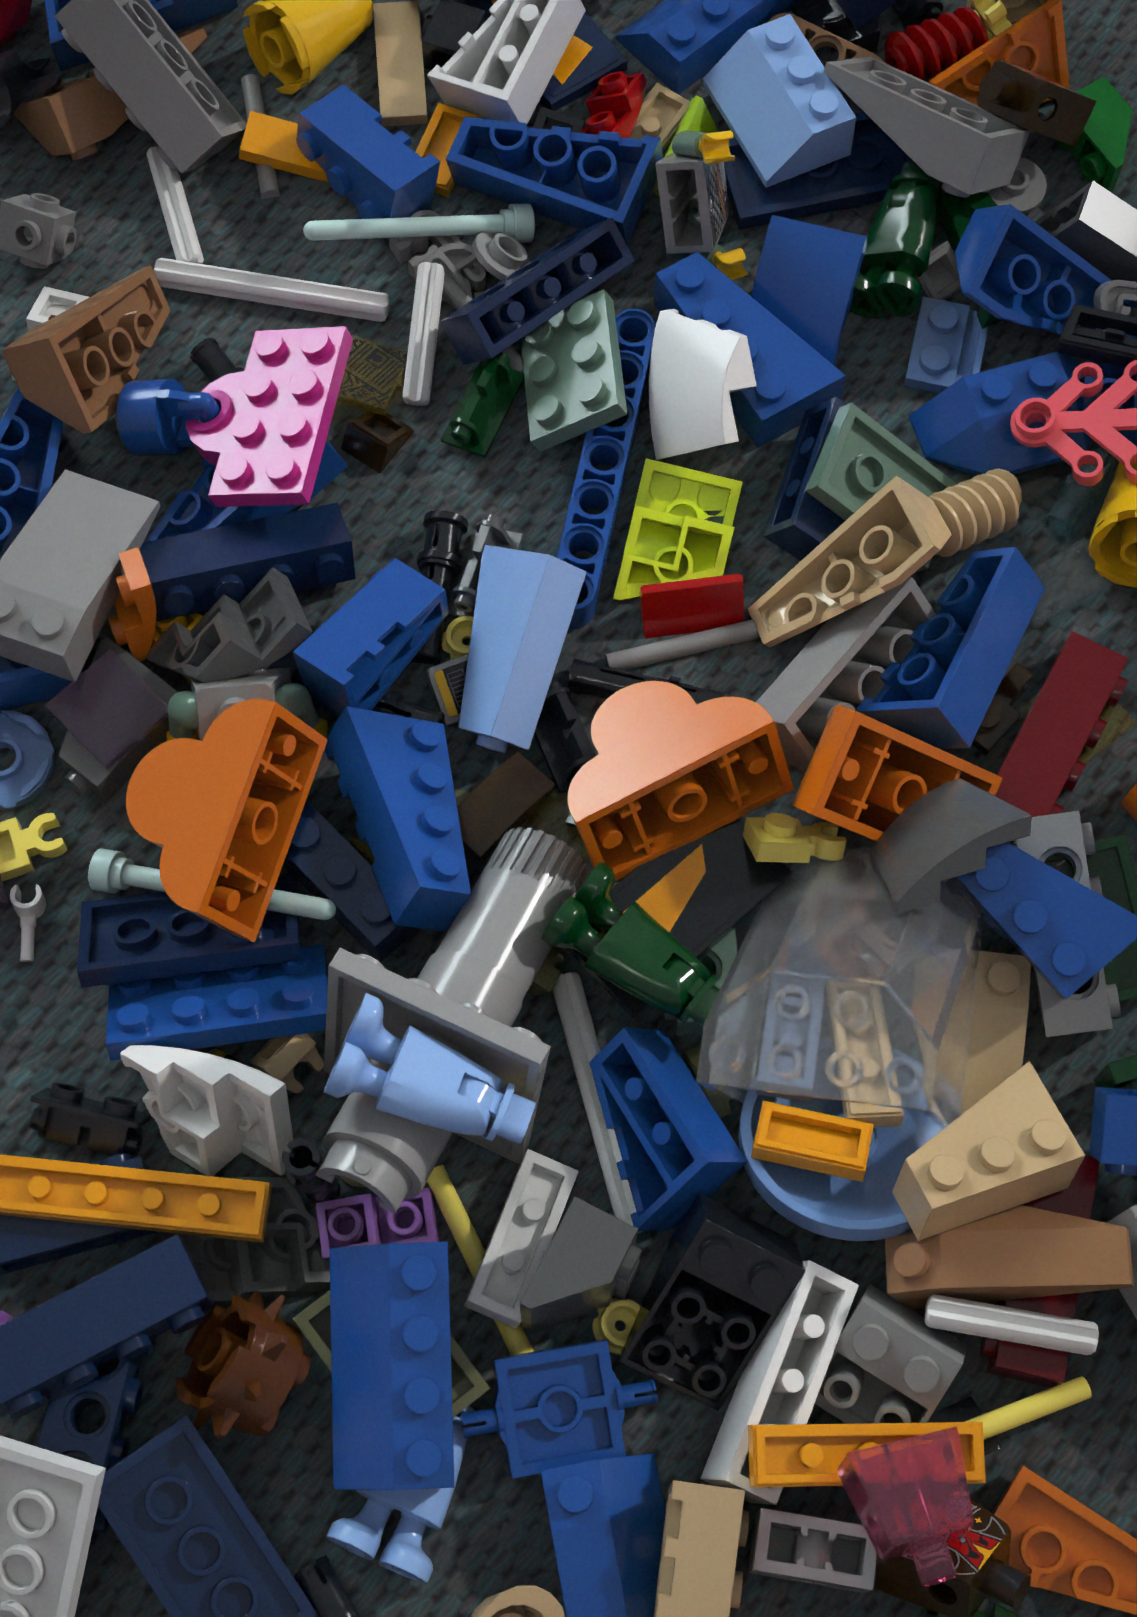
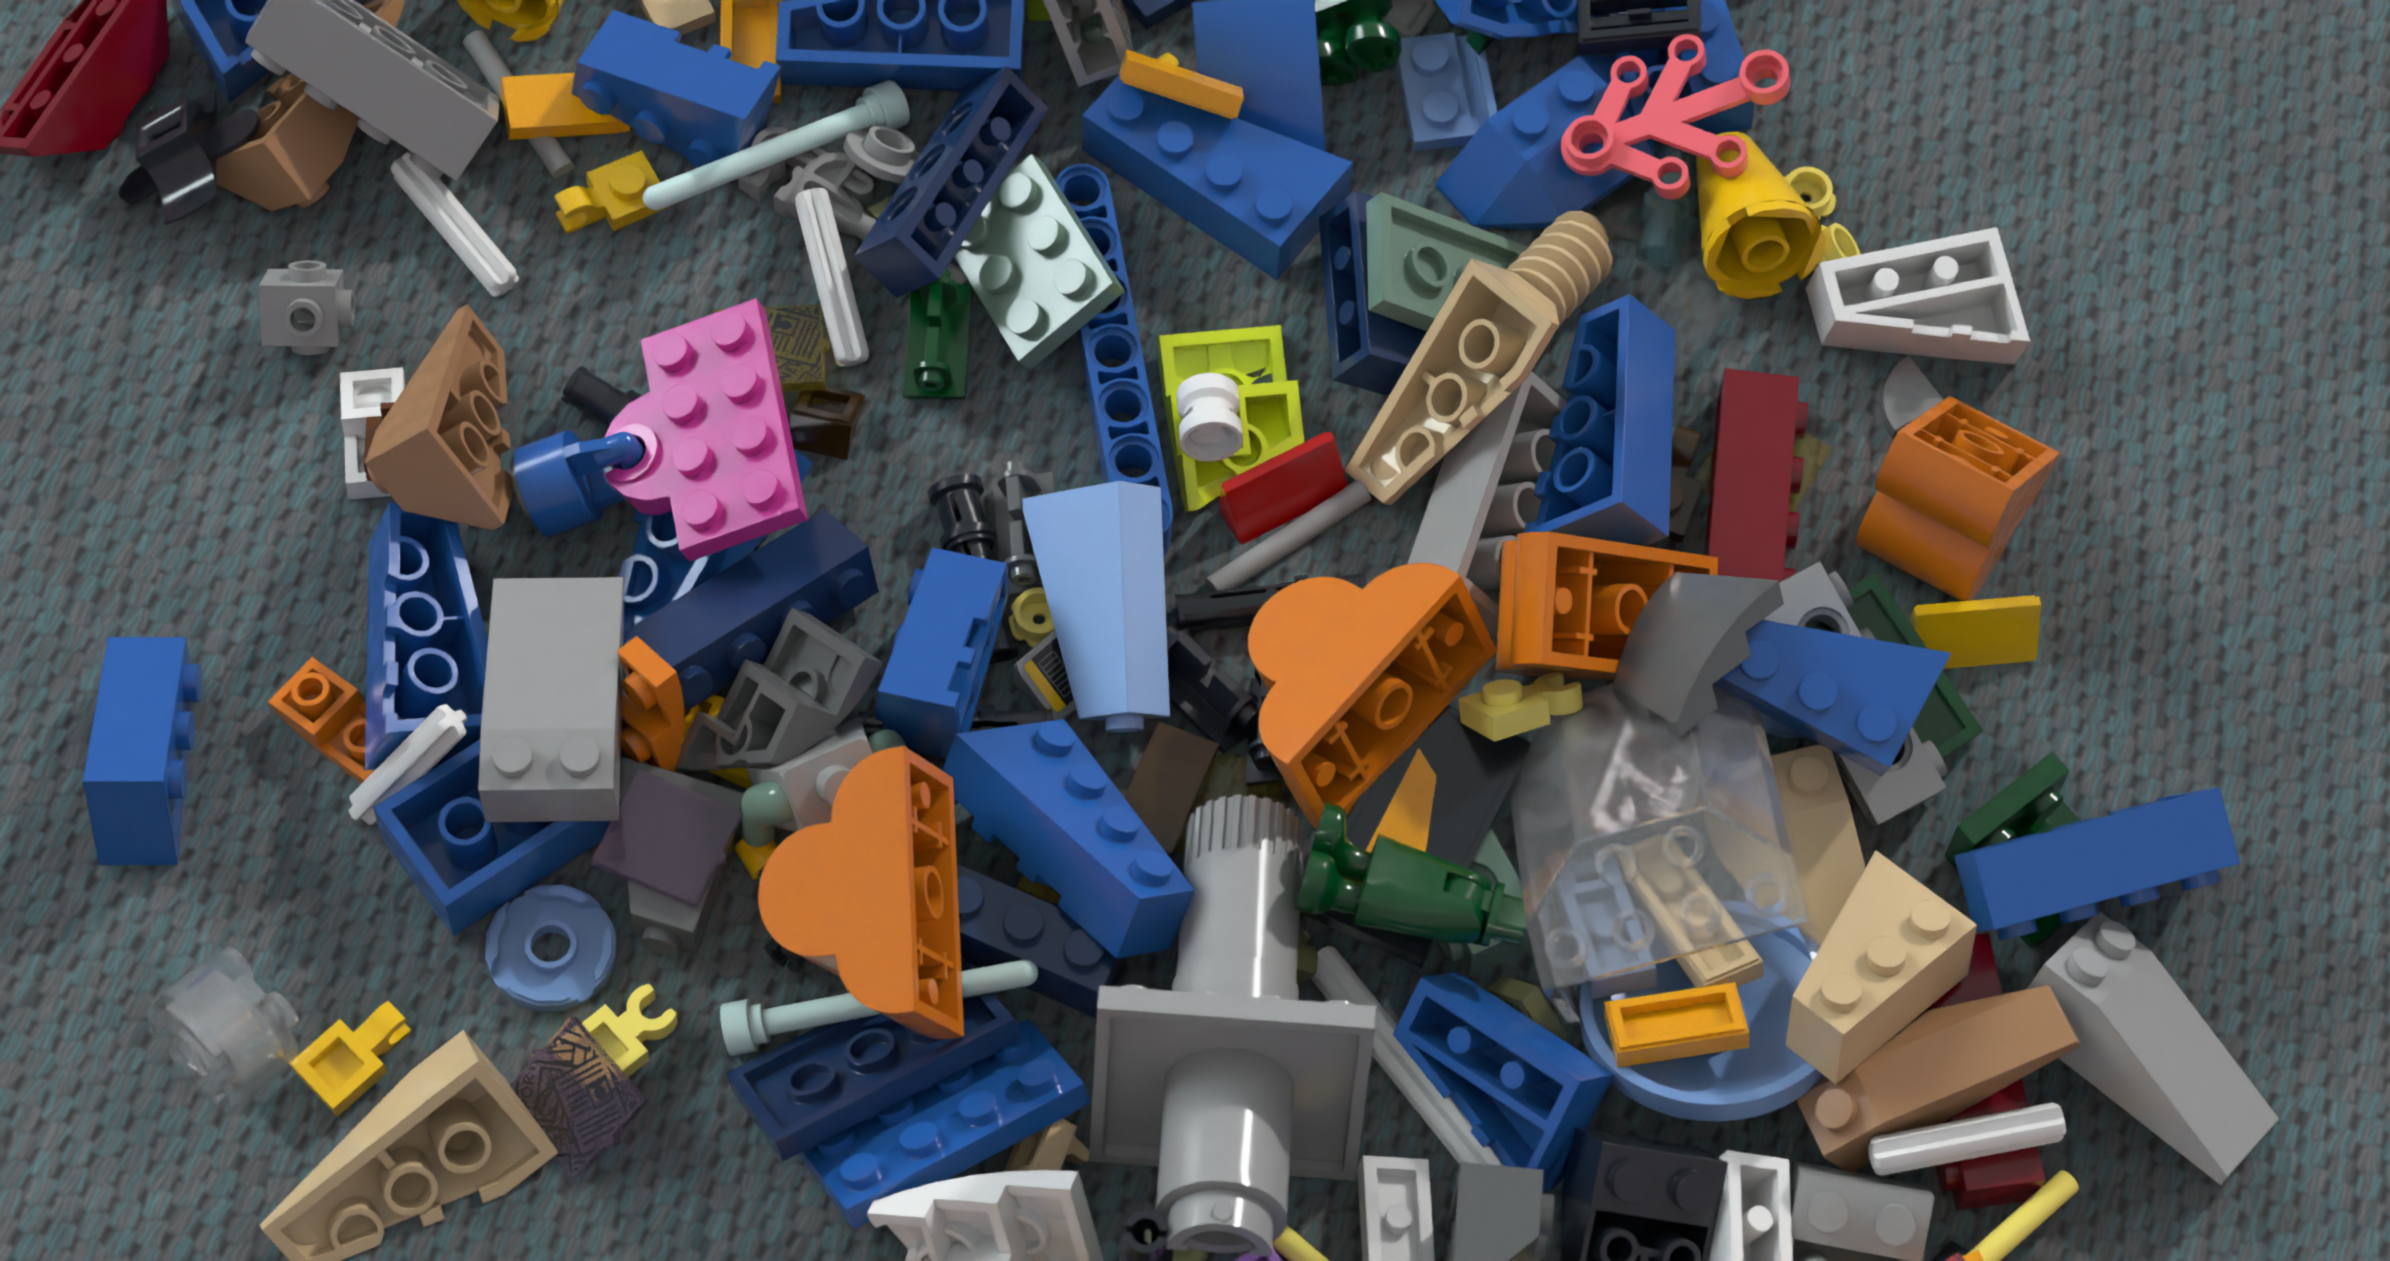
camera: 25 degrees left, 5 degrees down
(28, 914) = (666, 1111): white hand -> none
(271, 224) = (612, 193): none -> yellow plate
(272, 289) = (621, 284): white axle -> none
(425, 1080) = (1248, 1094): light blue piece -> none
(651, 535) = (1209, 417): none -> white wheel
(691, 382) = (1183, 230): white slope -> none
(737, 273) = (1181, 85): none -> light orange tile

